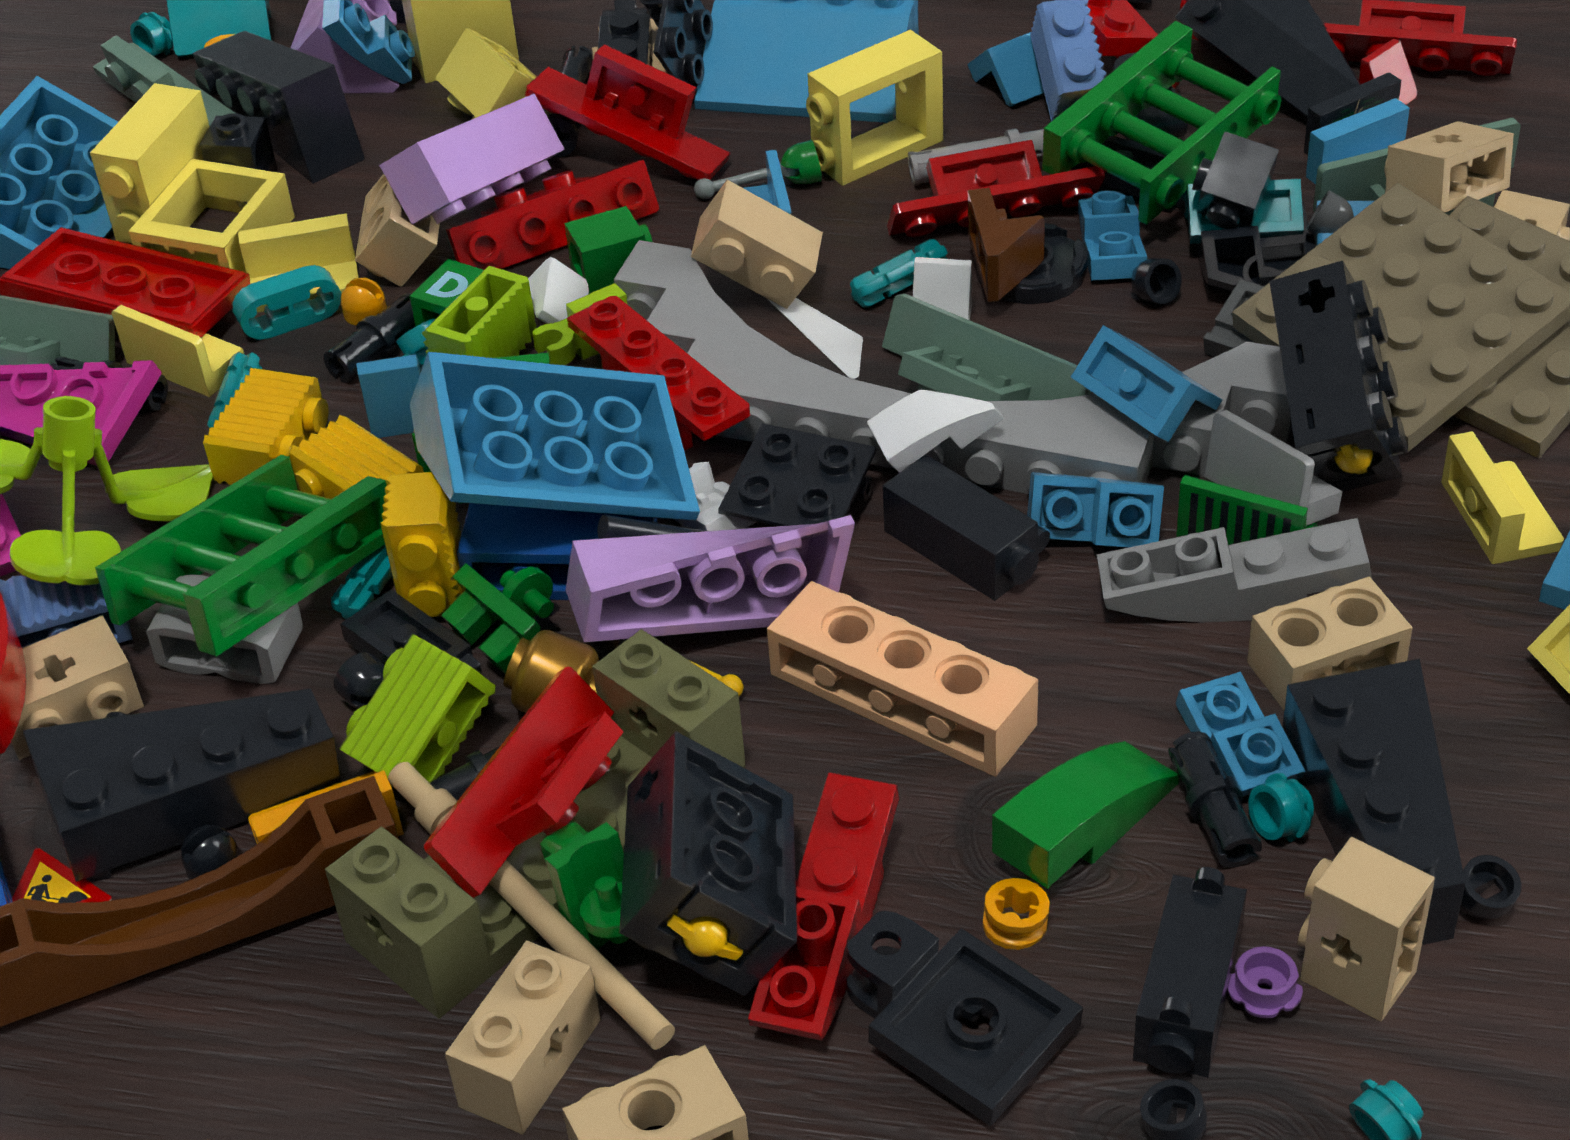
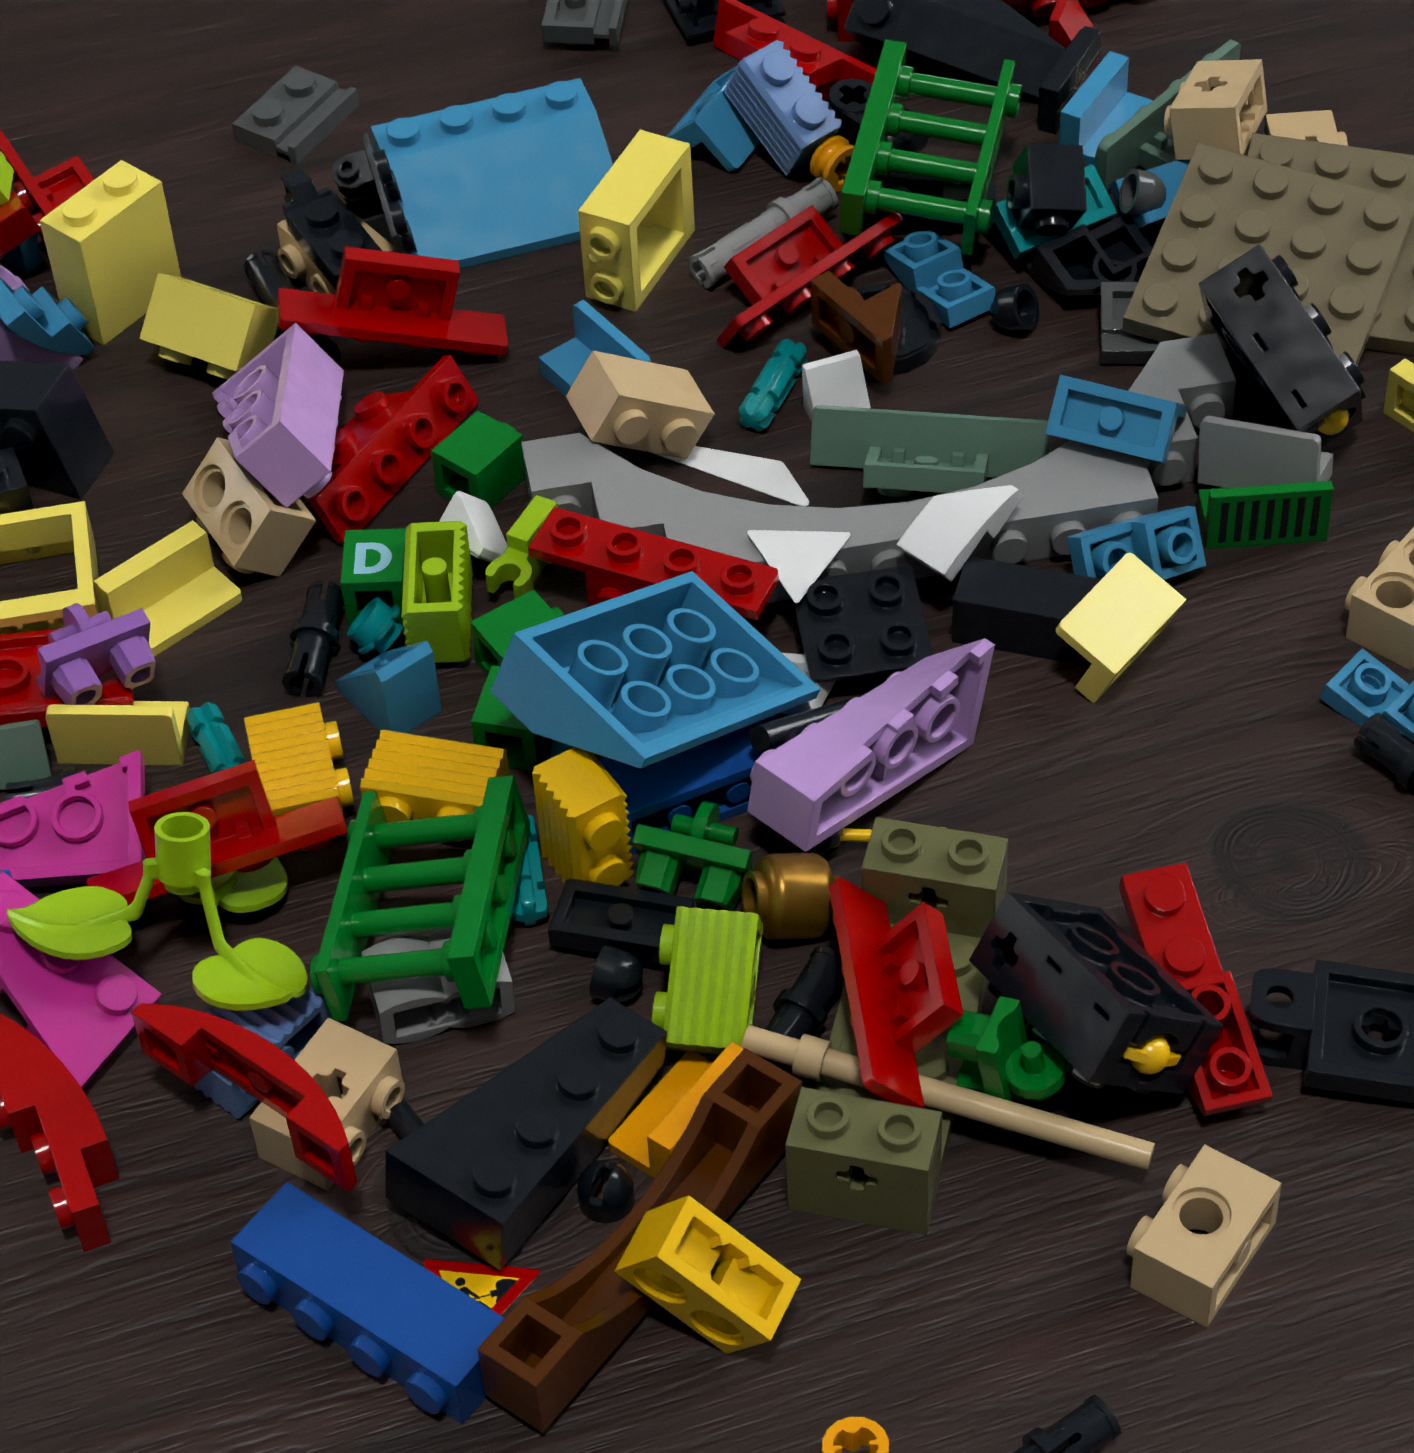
camera: 30 degrees left, 5 degrees up
(158, 438) = (241, 826): none -> red bracket
(179, 276) = (92, 648): none -> medium lavender hips
(186, 953) = (708, 1275): none -> yellow brick
(286, 302) = (194, 635): teal beam -> none
(362, 299) = (264, 608): light orange hinge -> none
(523, 1037) = (1037, 1210): tan brick -> none
(781, 402) = (798, 555): none -> white sticker
(798, 165) = (591, 290): hinge -> none
(904, 677) = (1092, 768): light nougat brick -> none
(1008, 929) = (1340, 944): light orange bush -> none
(1018, 562) = (1118, 622): none -> light yellow panel
(1078, 810) = (1325, 822): green slope -> none
(1218, 582) = (1291, 570): light grey slope -> none

